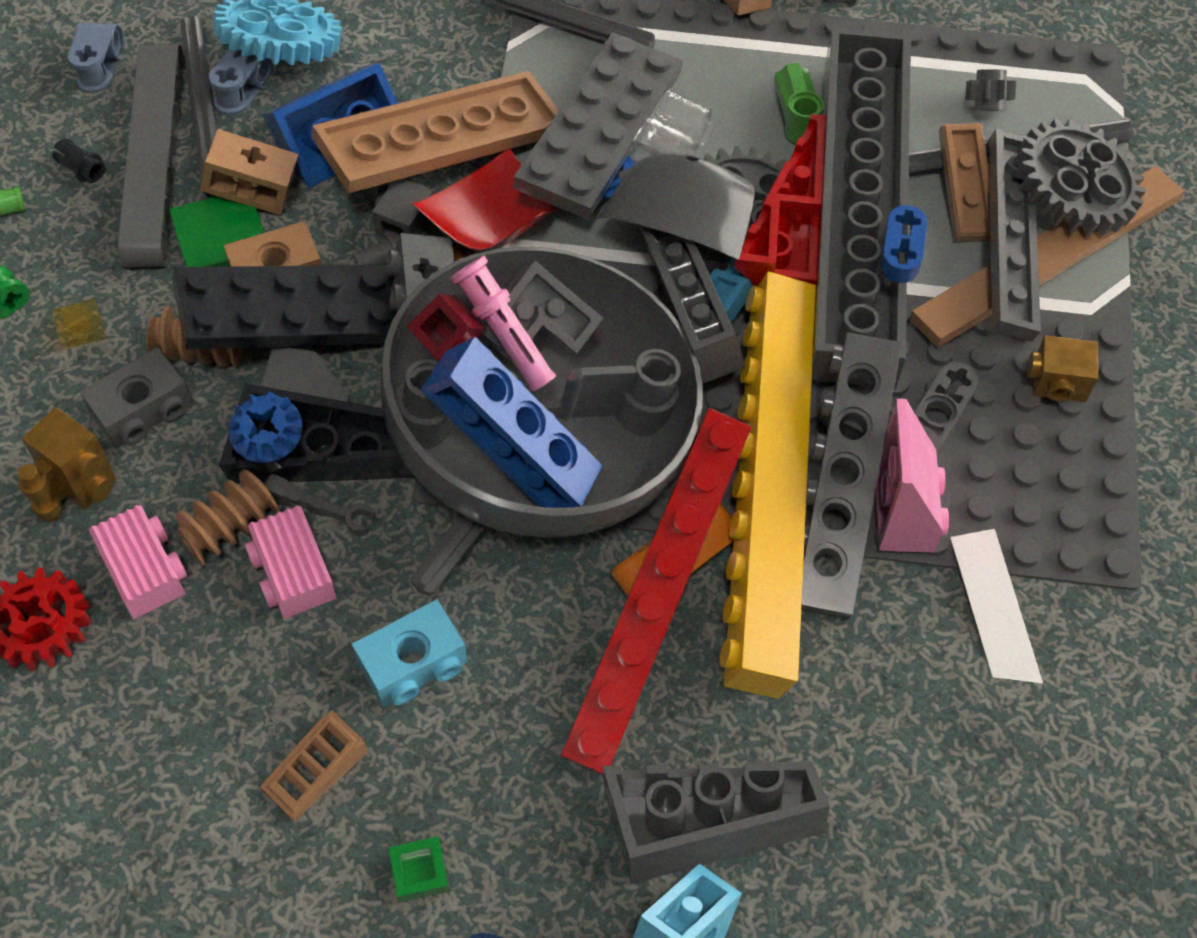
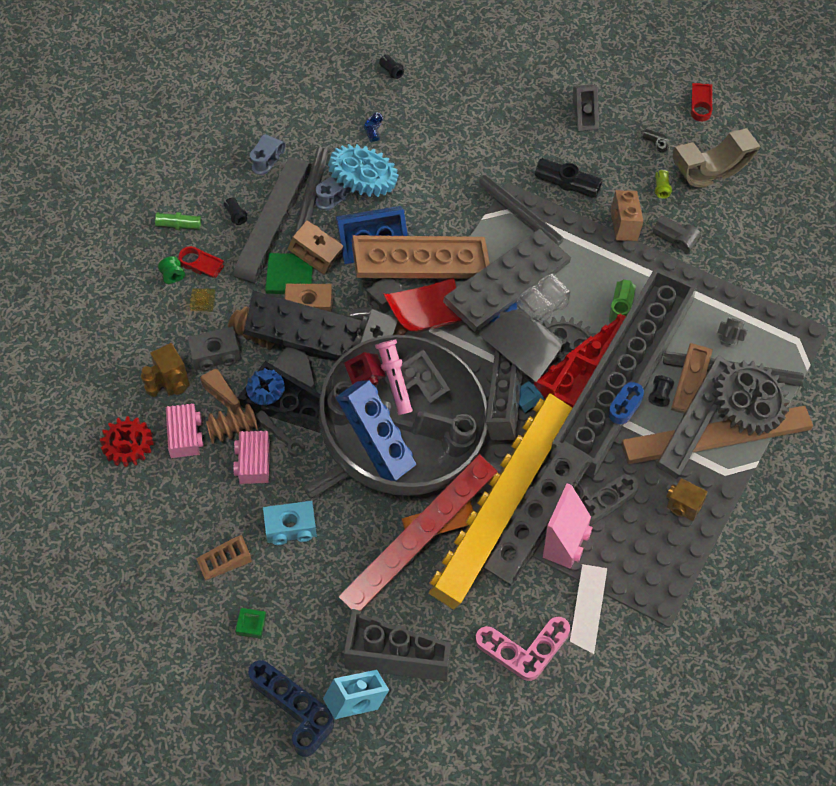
camera: 25 degrees right, 0 degrees up
(57, 263) = (204, 264): none -> red piece
(173, 462) = (218, 388): none -> medium nougat slope
(928, 735) = (522, 656): none -> bright pink beam
(933, 209) = (661, 391): none -> black bush

